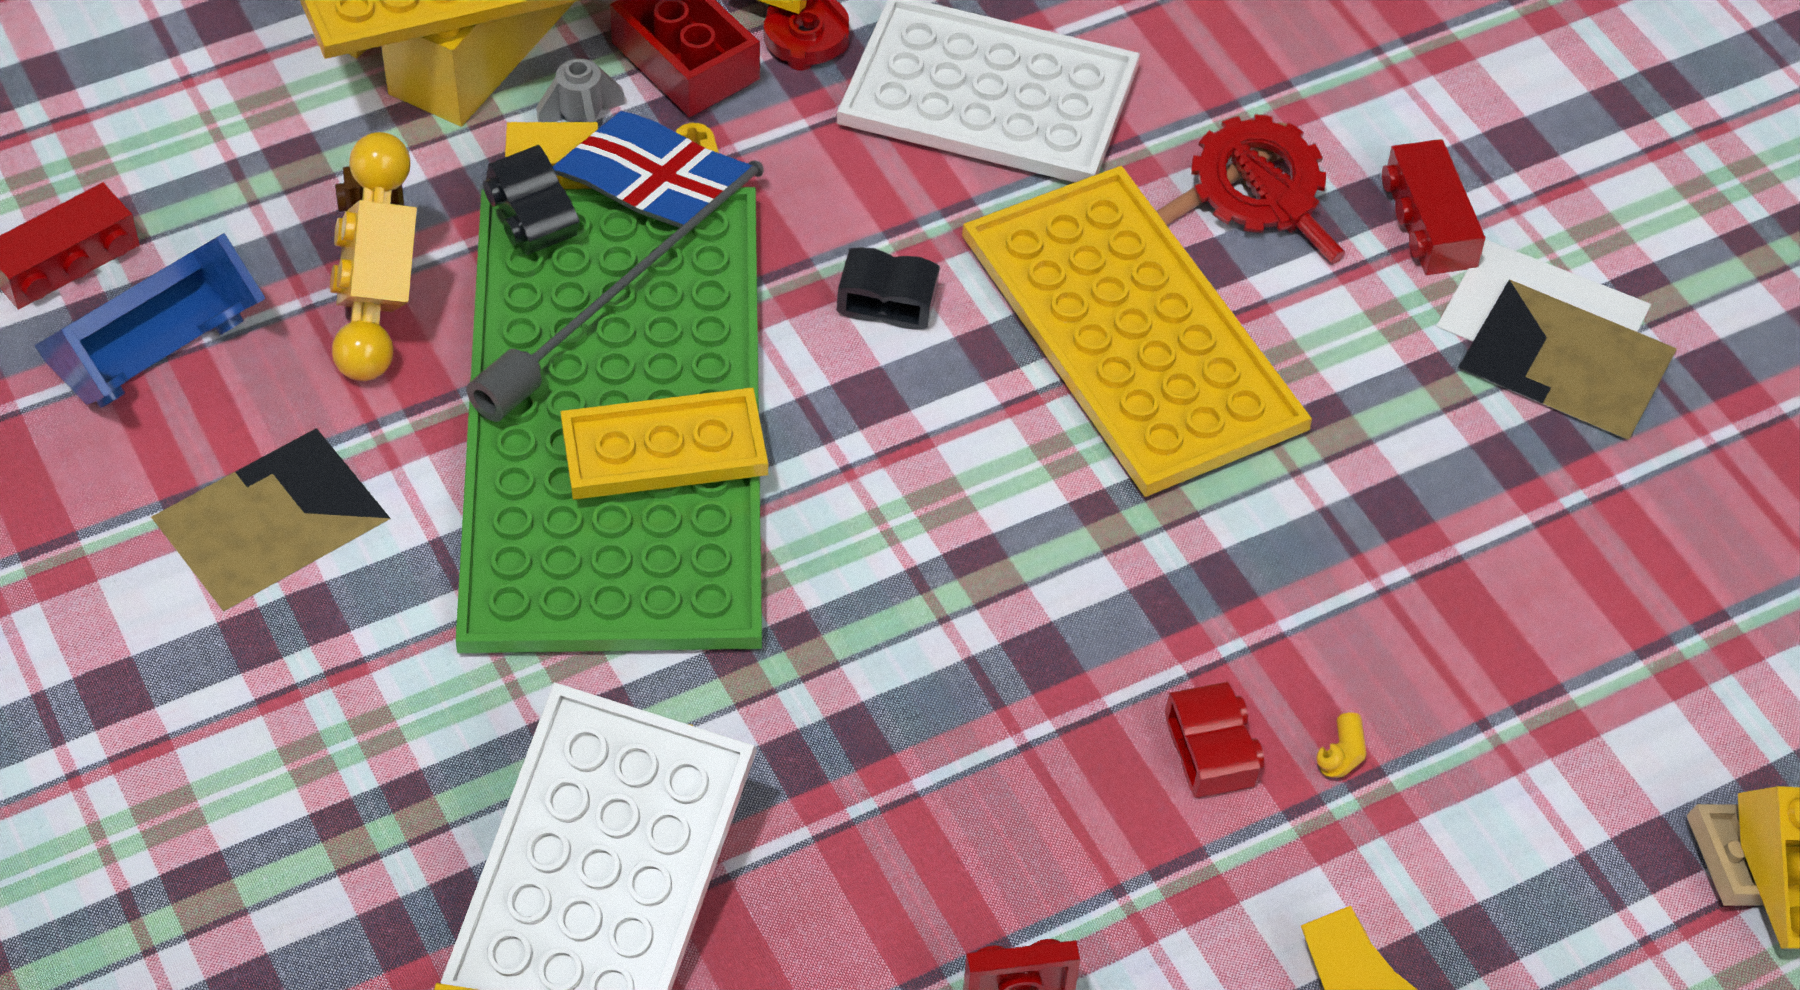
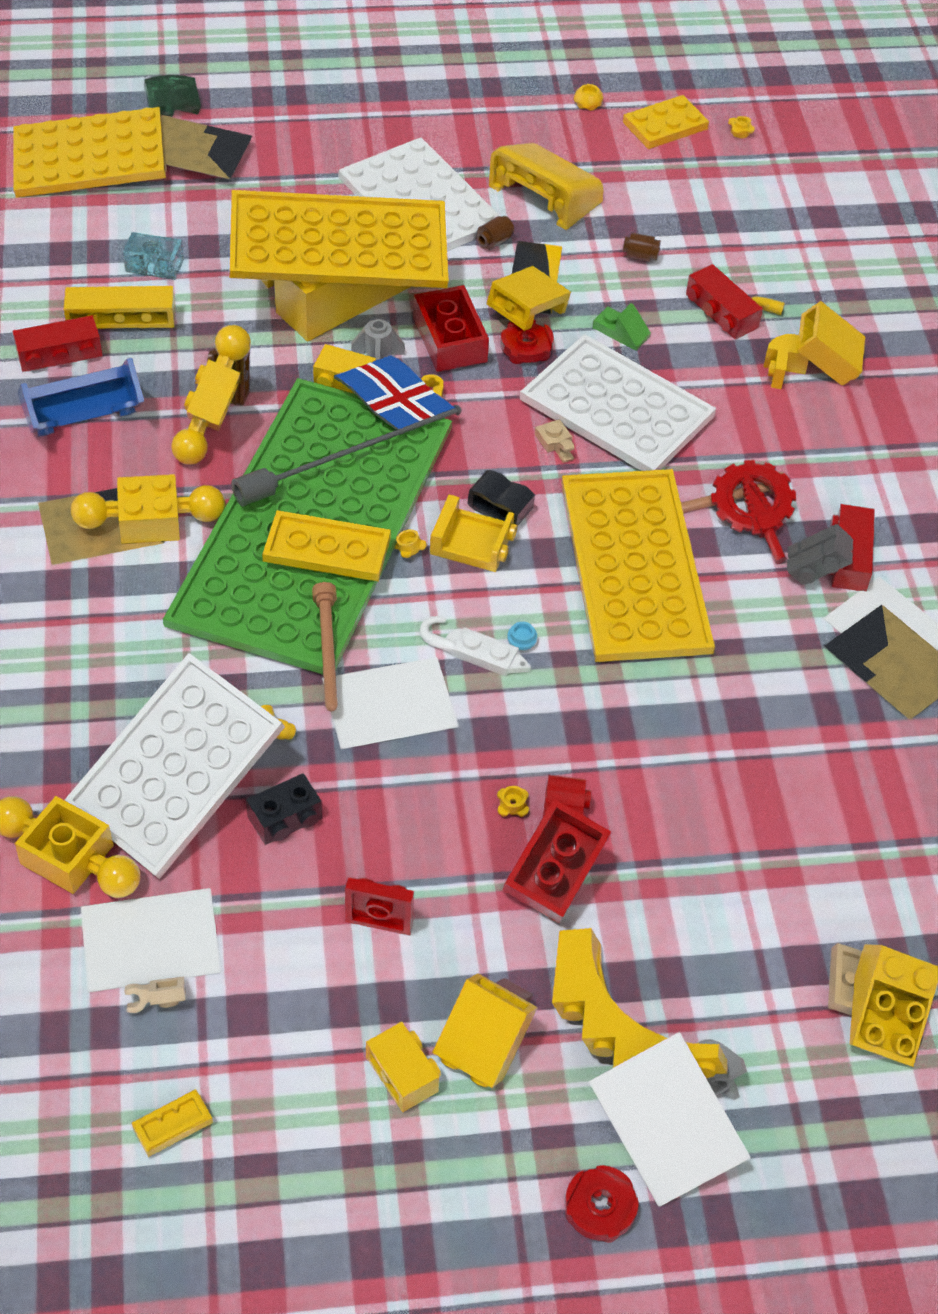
camera: 20 degrees right, 0 degrees up
(138, 153) = (122, 306): none -> yellow brick
(149, 57) = (153, 255): none -> clear light blue brick
(344, 470) = (147, 508): none -> yellow brick
(531, 200) = (317, 390): black brick -> none
(699, 525) = (324, 596): none -> nougat piece
(781, 400) = (409, 543): none -> yellow plate
(794, 881) = (284, 809): none -> black brick
(866, 660) = (392, 703): none -> white sticker
(872, 361) = (471, 536): none -> yellow panel
(921, 167) = (556, 437): none -> tan plate
(959, 533) = (476, 648): none -> white plate
(1020, 491) = (522, 635): none -> medium azure plate
(1132, 740) = (514, 794): none -> yellow plate
(1251, 821) = (556, 860): none -> red brick
(1349, 750) = (641, 845): yellow arm -> none
(1400, 232) = (820, 554): none -> dark grey brick

